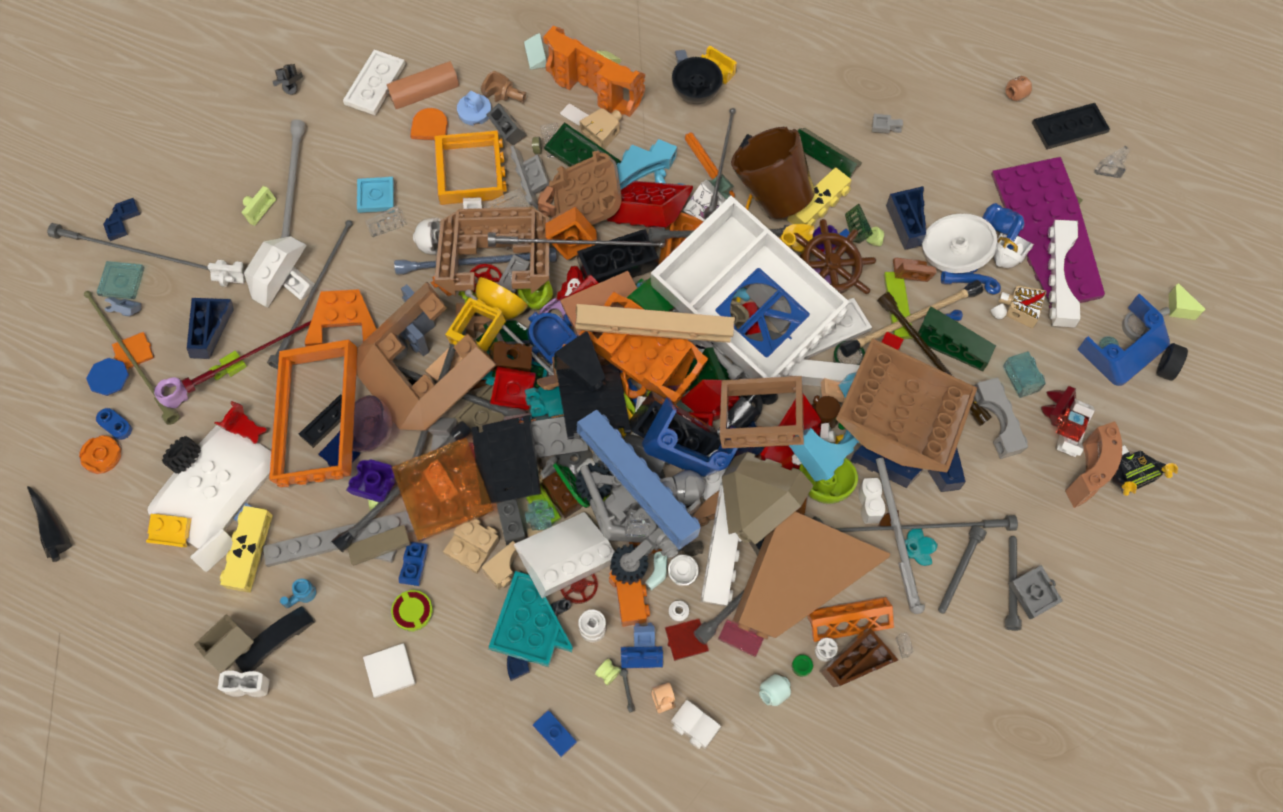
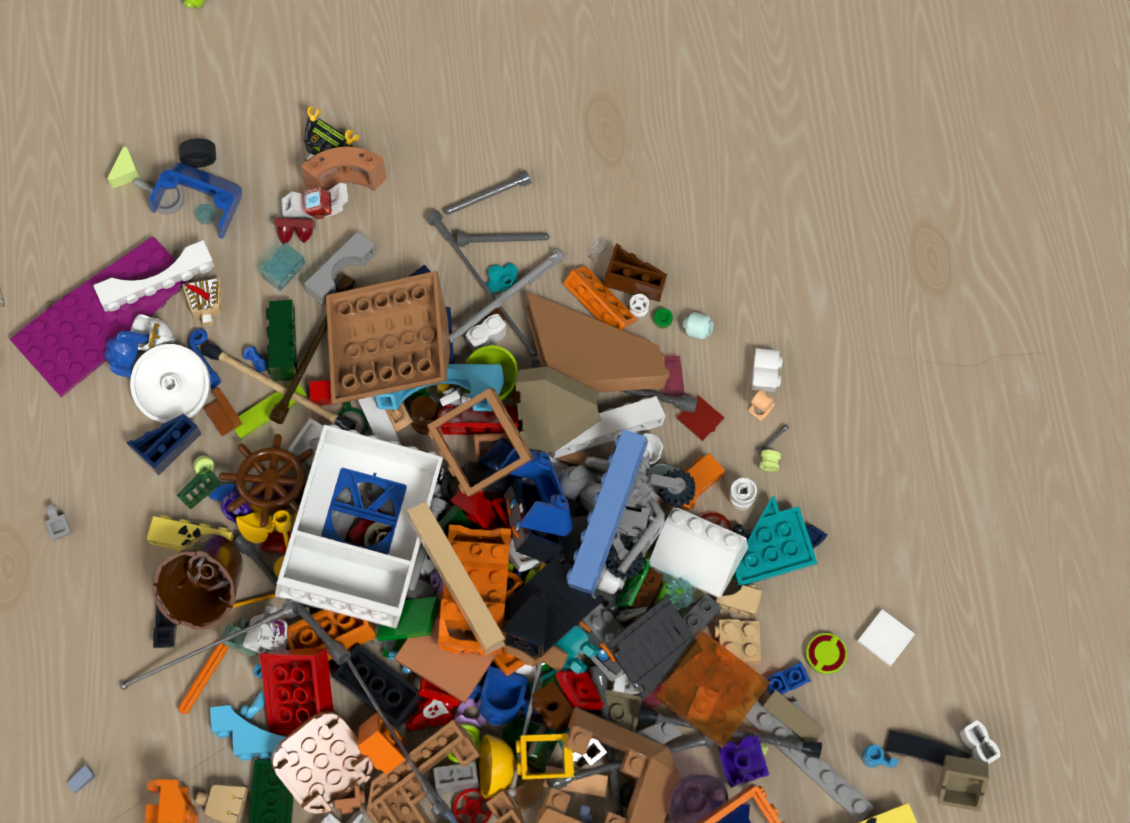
camera: 120 degrees left, 5 degrees up
(554, 733) = (844, 474): blue plate -> none
(641, 657) = (739, 443): blue hinge -> none
(644, 635) = (722, 449): medium blue tile -> none
(678, 617) = (679, 441): white plate -> none
(697, 79) = (107, 725): black piece -> none
(725, 63) = (73, 732): yellow hinge -> none
(827, 153) = (125, 562): dark green panel -> none
(999, 311) = (223, 319): white hinge -> none
(1035, 592) = (487, 172): plate -> none

